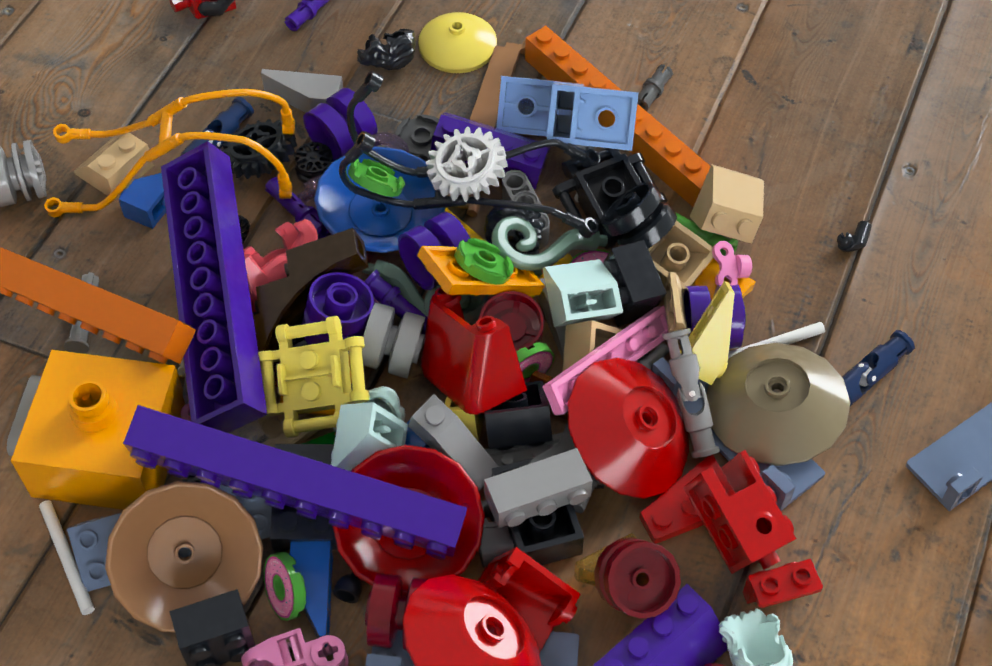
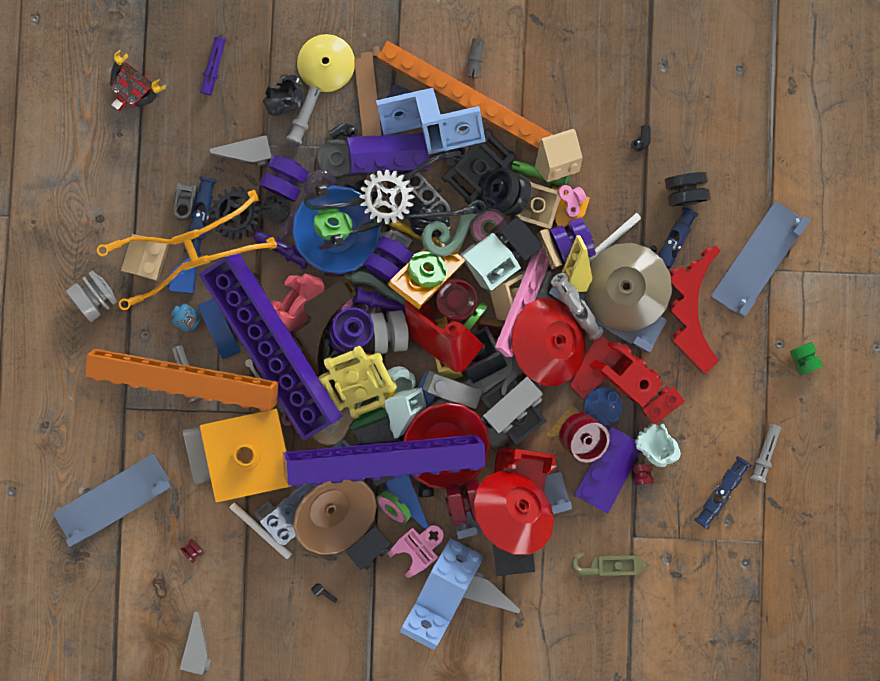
camera: 25 degrees left, 30 degrees up
(122, 243) = (185, 317): none -> dark azure head
(158, 270) = (219, 328): none -> blue slope
(198, 117) = (184, 198): none -> dark grey piece
(393, 86) = (300, 124): none -> light grey pin
(437, 109) = (343, 129): none -> black arm
(693, 555) = (603, 405): none -> blue dish
(856, 505) = (685, 310): none -> red arch
(908, 302) = (687, 190): none -> black wheel

